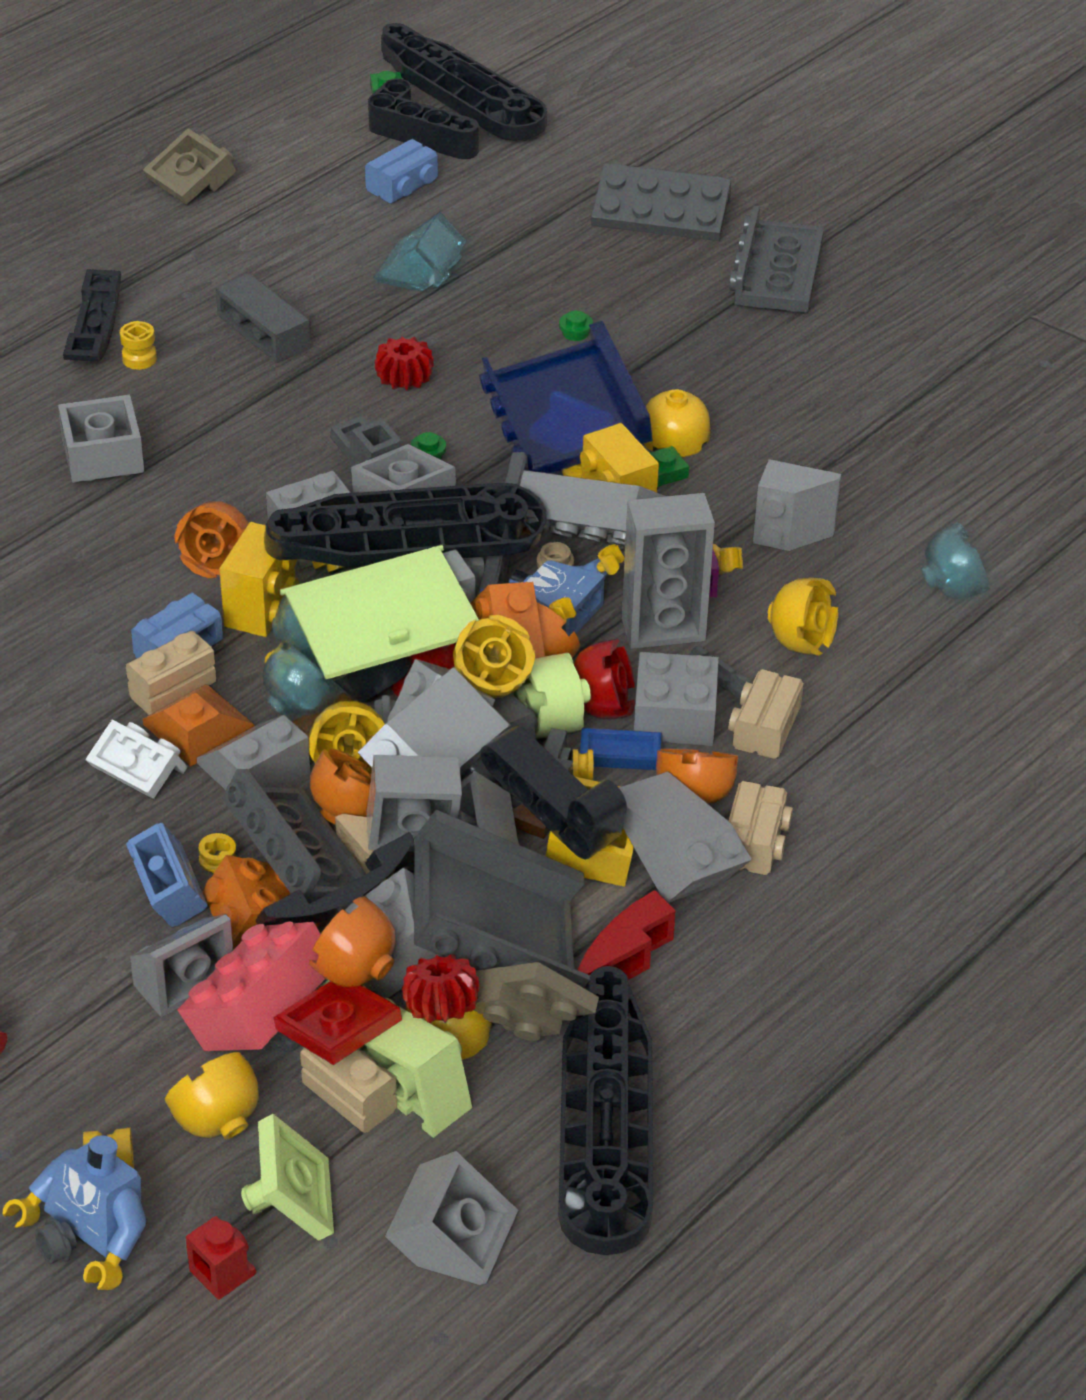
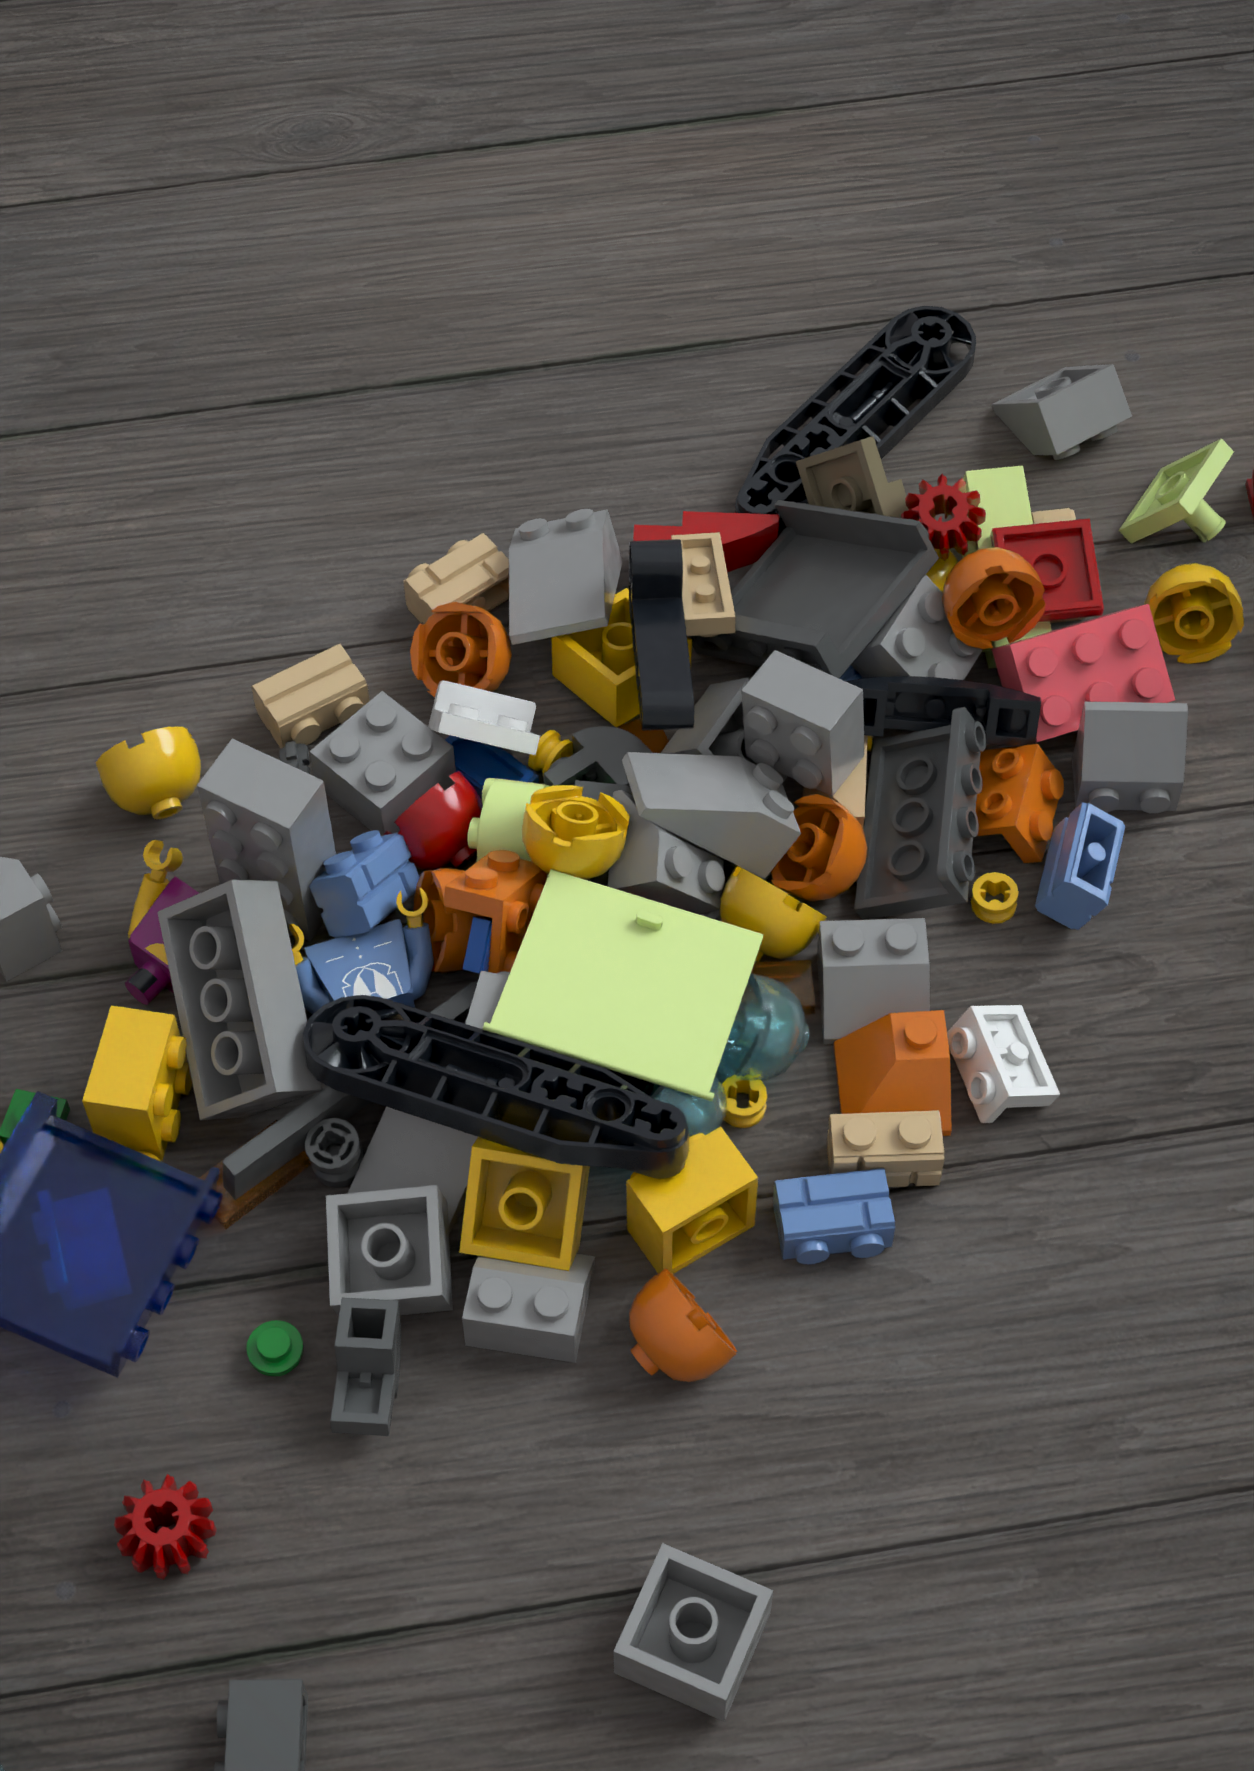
camera: 140 degrees left, 15 degrees up
(574, 867) = (705, 586): none -> tan plate
(604, 610) = (364, 883): none -> medium blue brick
(631, 731) = (484, 717): none -> white bracket

